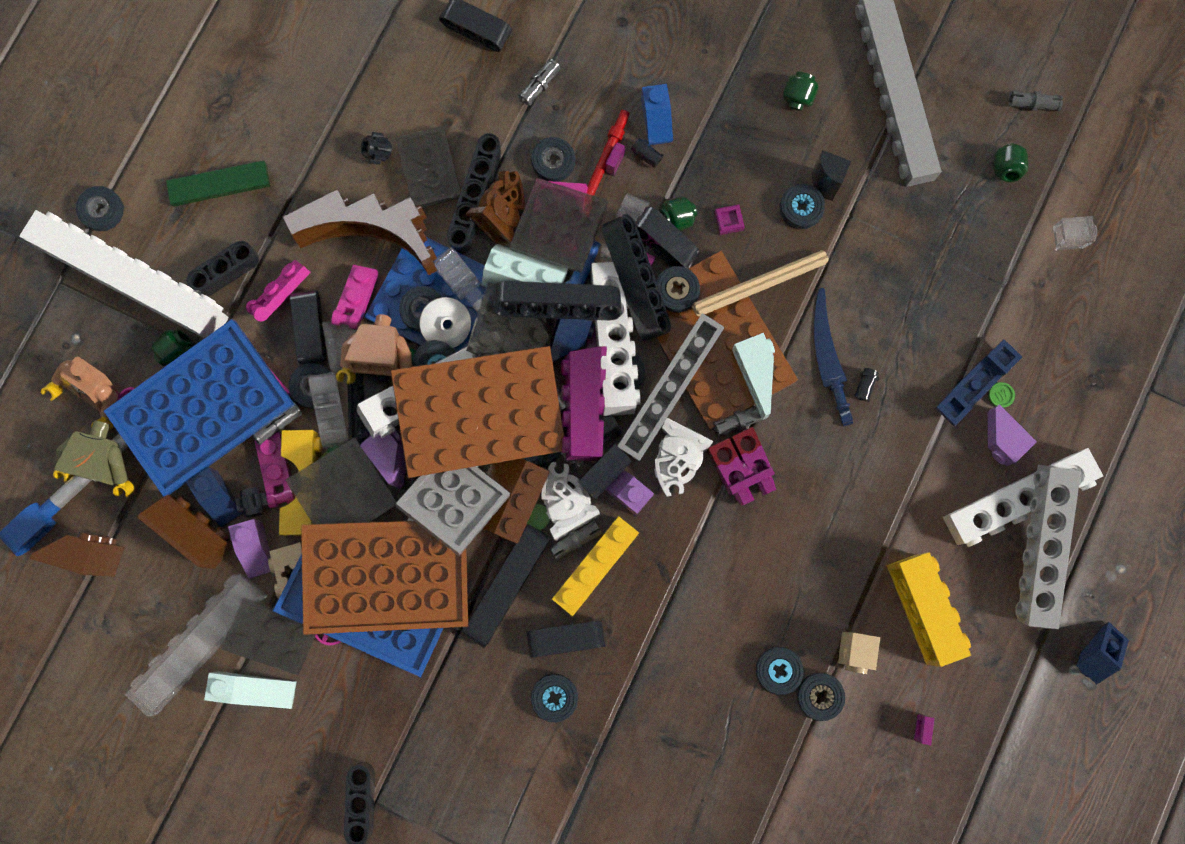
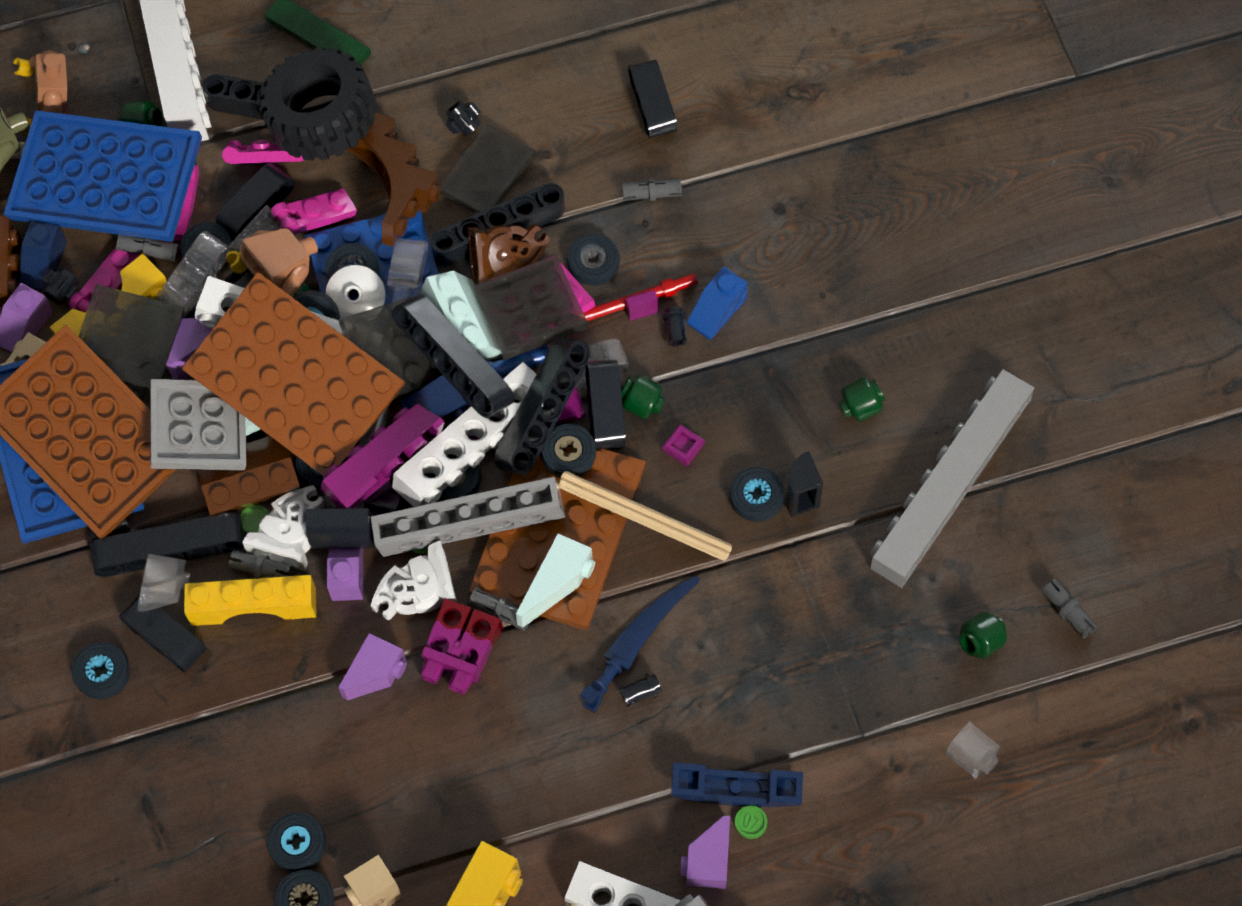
camera: 50 degrees right, 15 degrees down
(261, 210) = (308, 78): none -> black tyre
(534, 612) = (162, 582): none -> clear slope
(709, 528) = (373, 668): none -> medium lavender slope

